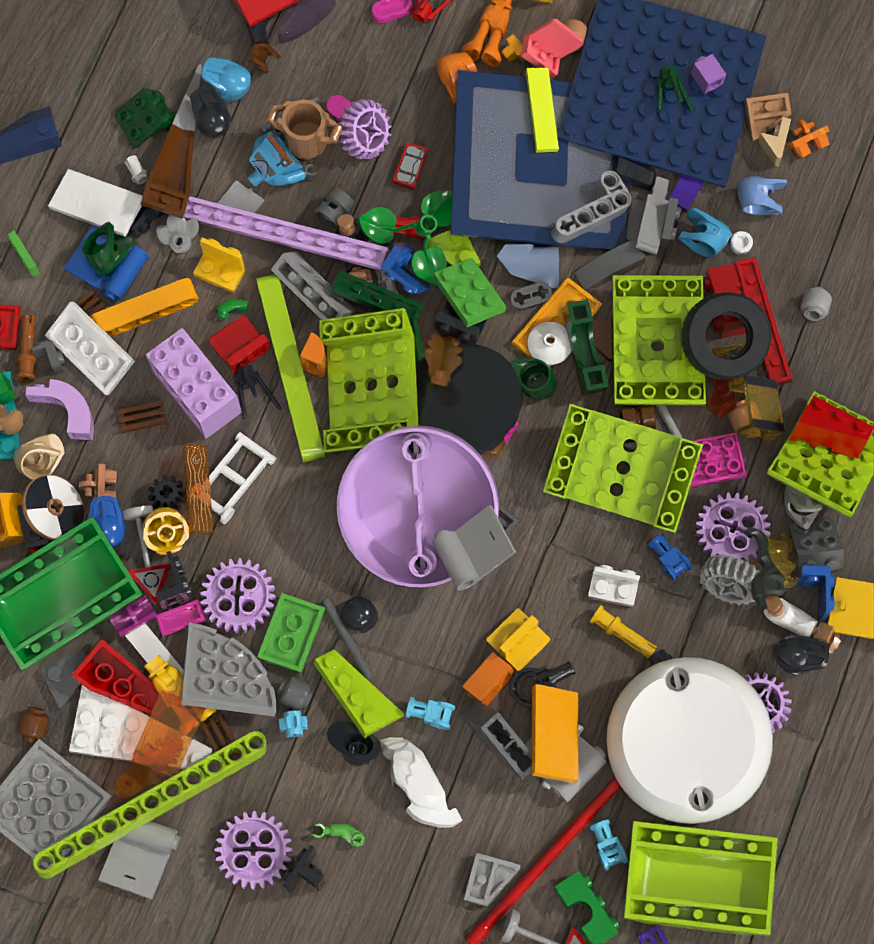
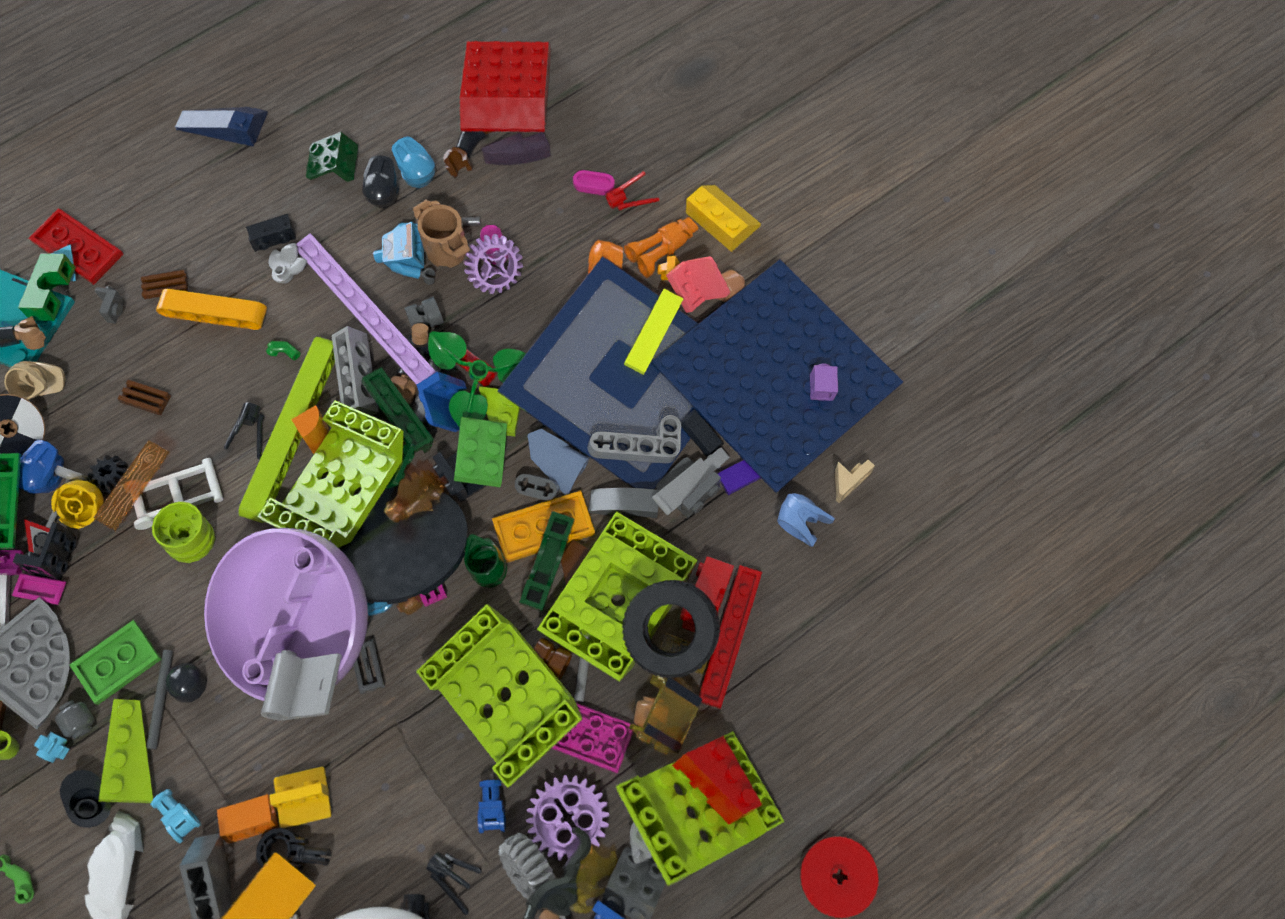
camera: 30 degrees right, 5 degrees down
(23, 254) = (154, 211): bright green tile -> none
(26, 358) = (89, 296): dark orange pin -> none
(79, 415) = (96, 357): lavender arch -> none
(89, 348) = (143, 315): white tile -> none
(96, 202) = (240, 203): white tile -> none
(101, 477) = (70, 426): nougat hips -> none
(106, 256) = (208, 246): dark green helmet -> none
(115, 283) = (212, 256): blue door -> none
(138, 174) = (292, 200): white pin -> none
(170, 177) = (309, 213): reddish brown plate -> none
(194, 383) = (195, 392): lavender brick -> none
(218, 595) = (82, 588): lavender gear -> none
(220, 265) = (297, 310): yellow bracket -> none
(239, 344) = (264, 383): red bracket -> none
(241, 198) = (358, 267): light grey piece -> none
(262, 493) = (173, 527): none -> lime wheel
(410, 165) = (515, 317): tile -> none
(541, 349) = (522, 550): white dish -> none
(614, 586) = (422, 802): white bracket -> none
(614, 626) = (394, 841): yellow pin -> none
(663, 619) = (441, 866): none -> black plant
(671, 79) = (785, 368): dark green plant -> none
(710, 232) = (732, 531): dark azure helmet -> none
(722, 399) = (637, 688): clear red tile -> none
(741, 243) = (758, 551): white tile -> none
(766, 112) = (857, 447): medium nougat wing -> none
(815, 303) = (789, 649): light grey head -> none
(818, 137) = (892, 496): orange hips -> none

